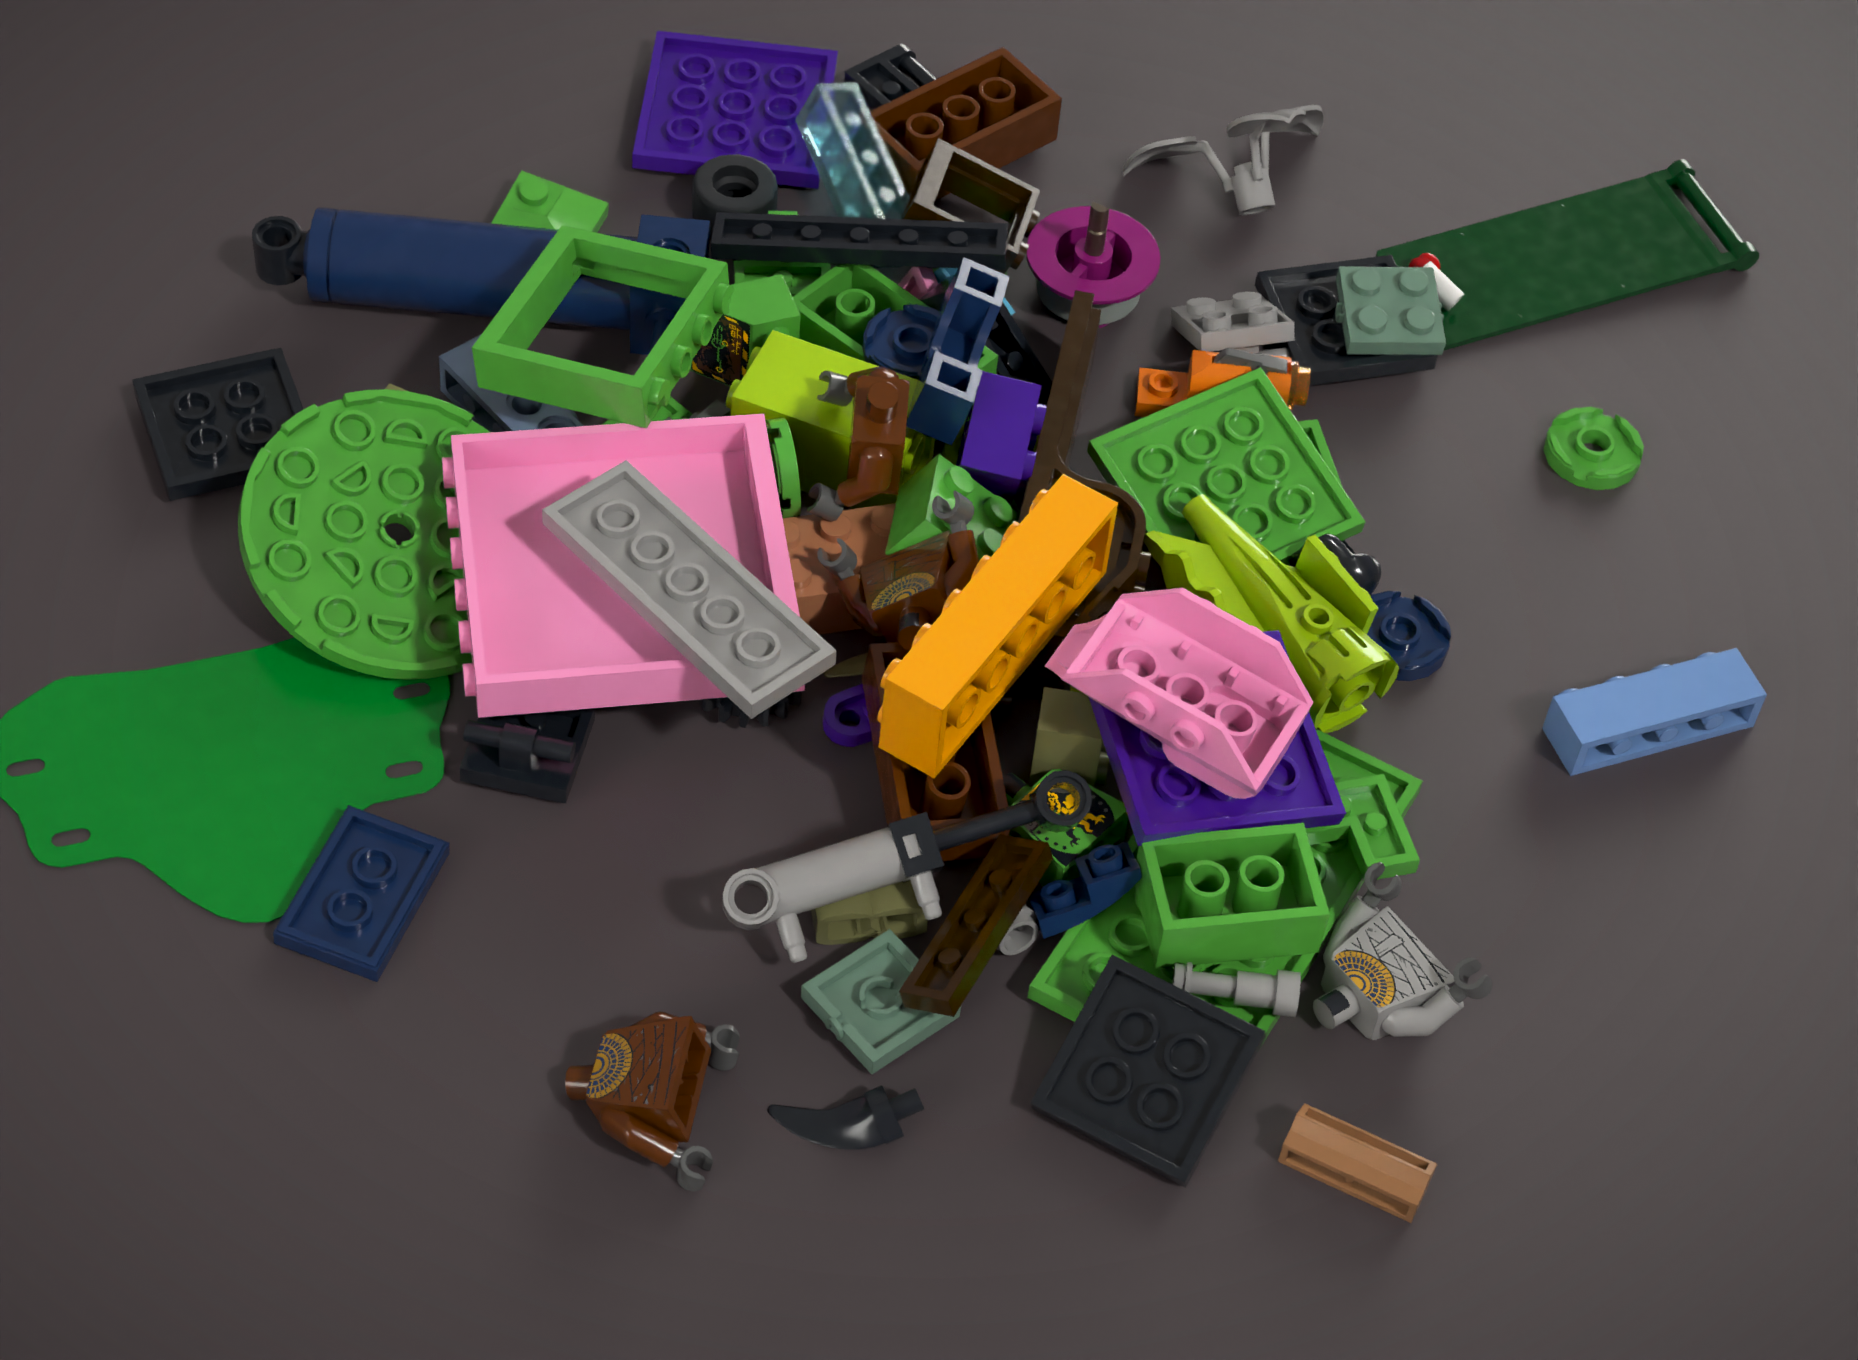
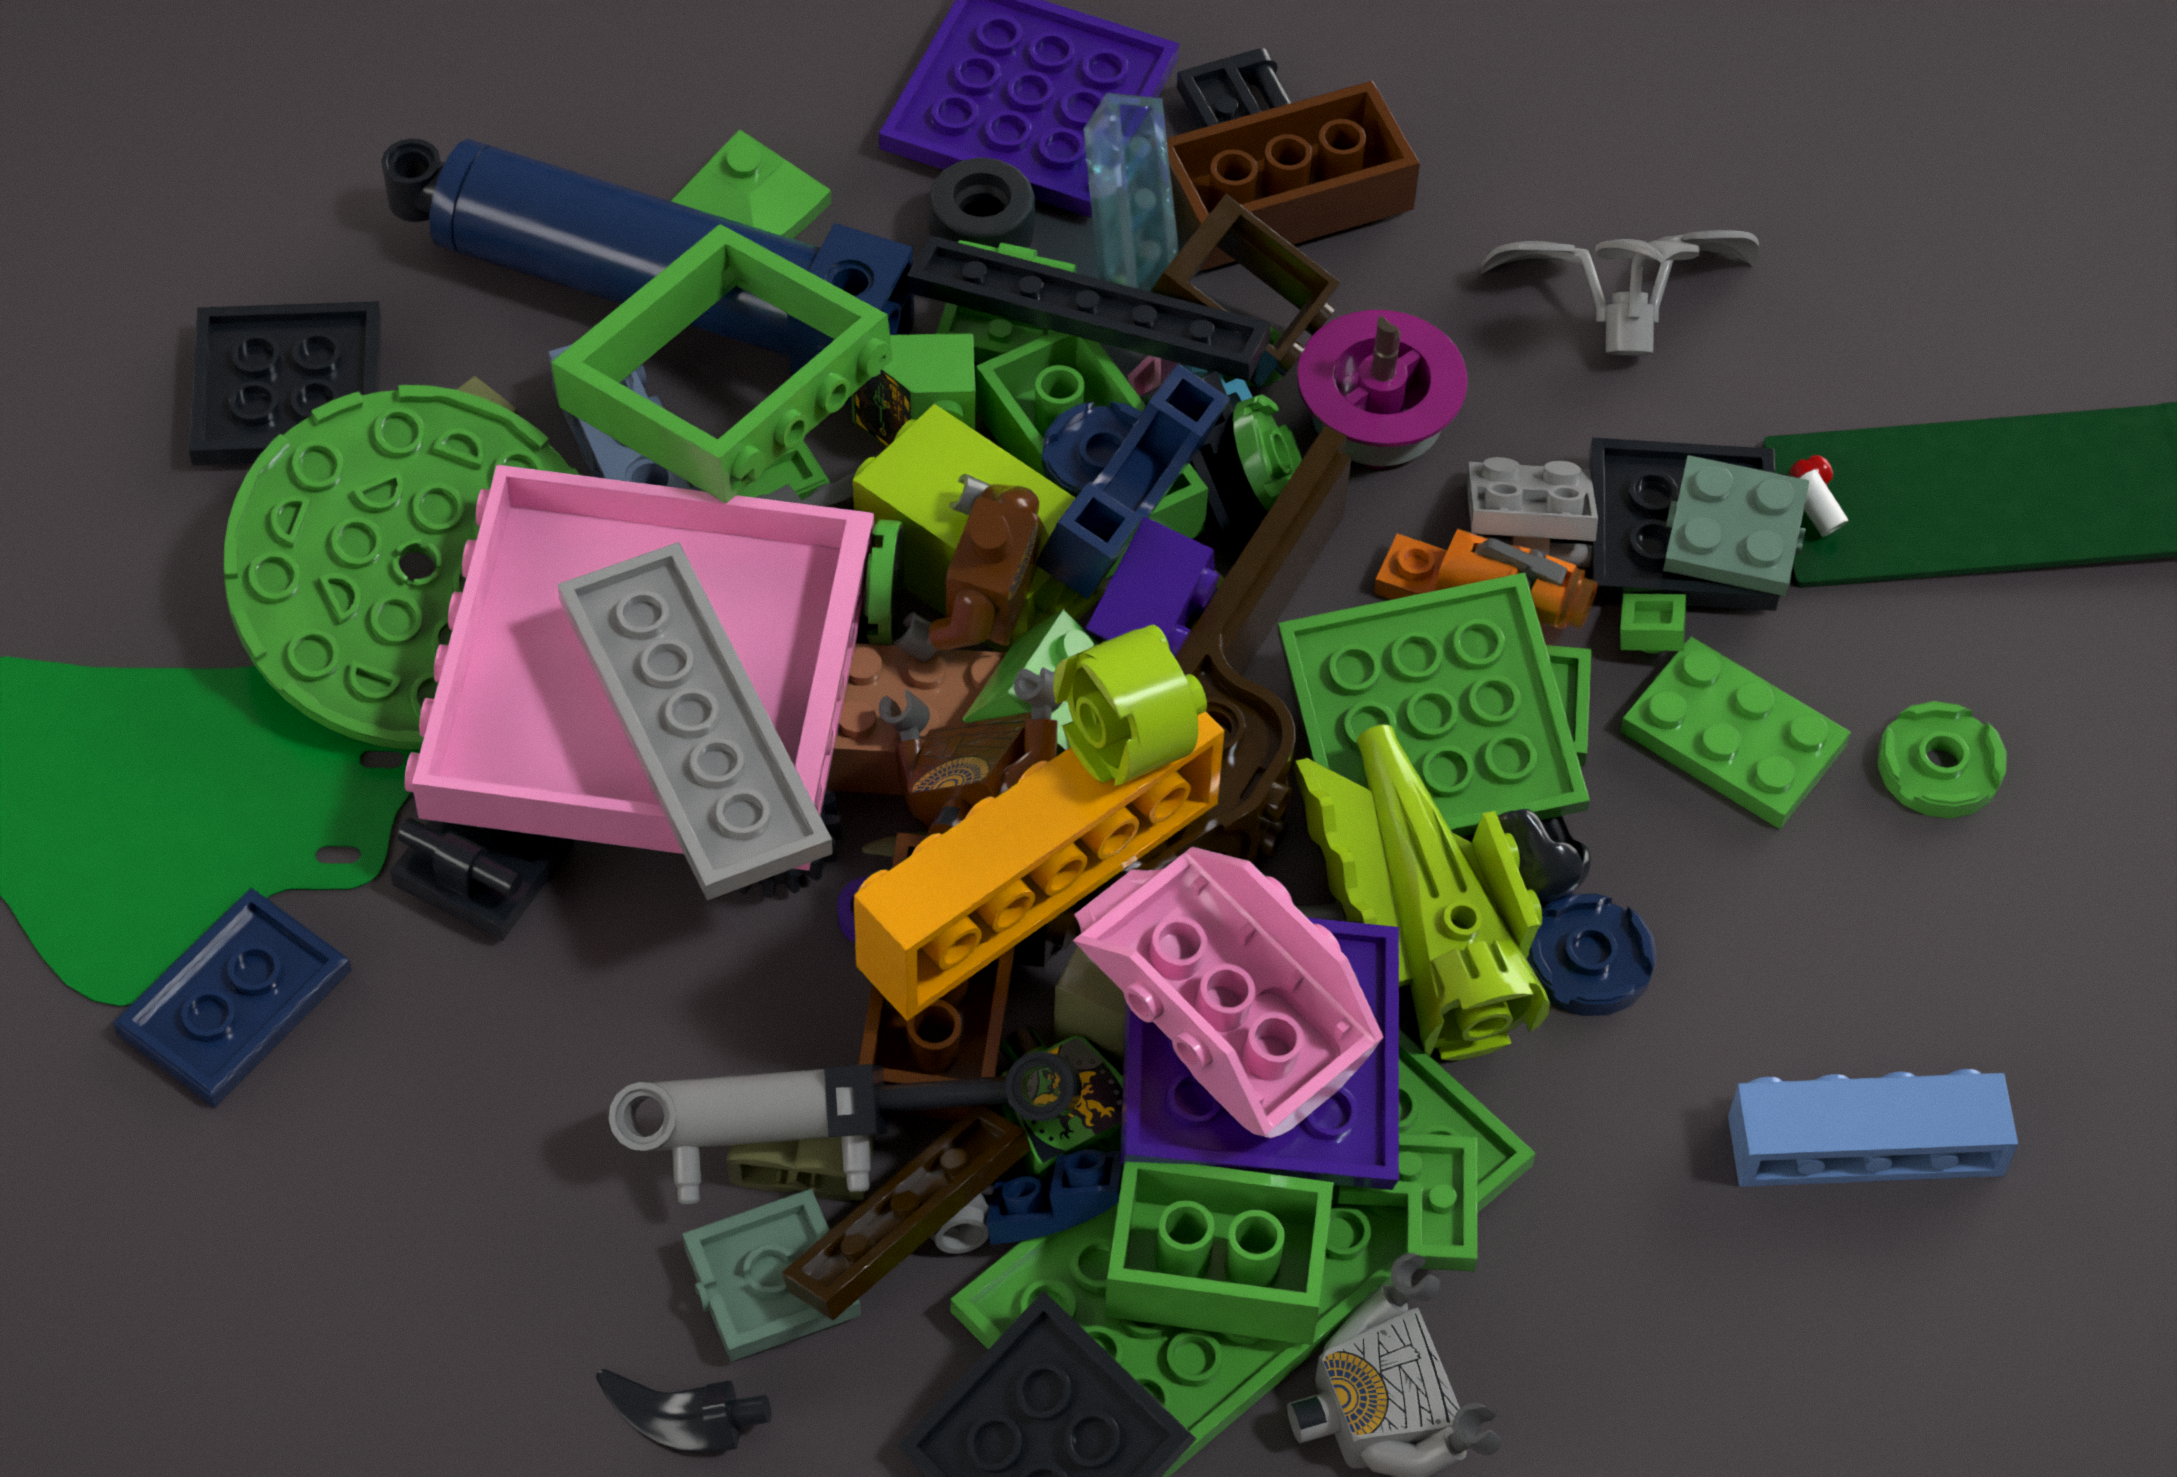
camera: 20 degrees right, 5 degrees up
(650, 1086) = (460, 1312): reddish brown torso -> none
(1030, 327) = (1265, 450): none -> bright green tile
(1053, 492) = (1129, 705): none -> lime brick
(1252, 989) = (1233, 1382): light grey piece -> none
(1353, 392) = (1653, 622): none -> bright green plate
(1439, 459) = (1735, 732): none -> bright green plate

